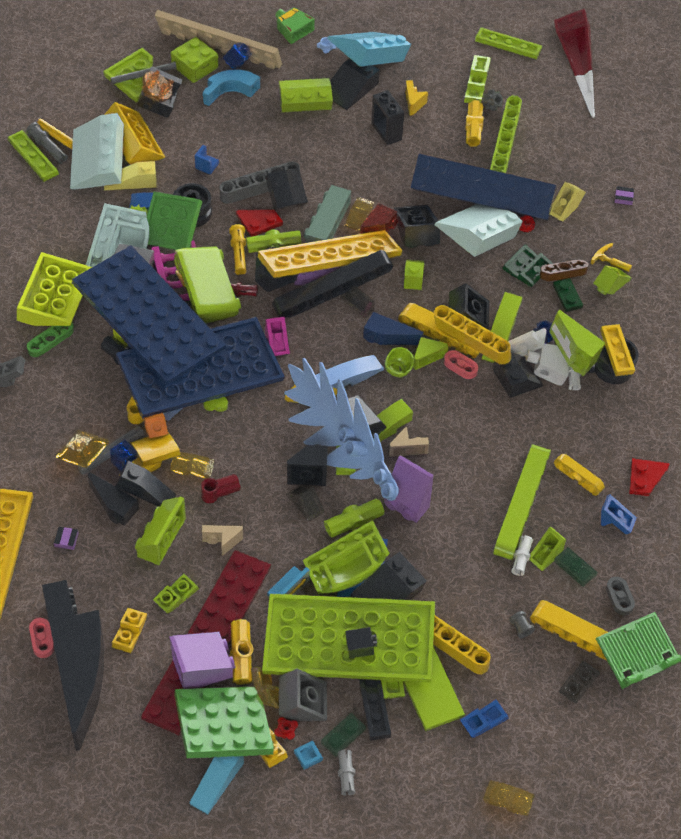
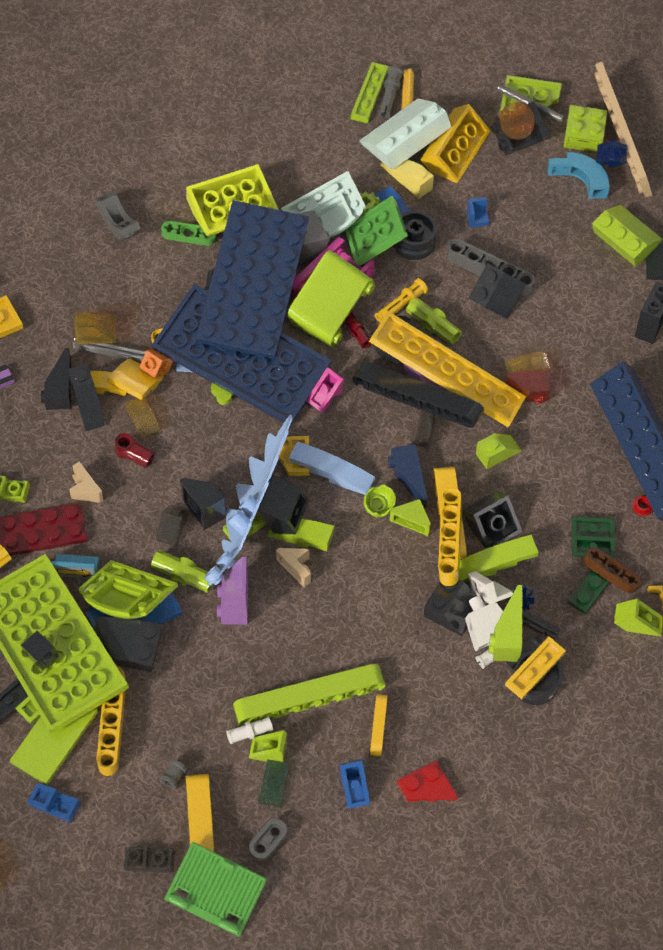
camera: 55 degrees right, 5 degrees up
(122, 454) = (107, 359): clear blue brick -> none
(161, 530) = (54, 438): lime slope -> none
(259, 221) = (449, 296): red wing -> none
(328, 215) = (497, 343): sand green brick -> none
(417, 226) = (554, 417): black slope -> none
(462, 364) = (423, 553): coral plate -> none
(480, 228) = (590, 468): light aqua slope -> none

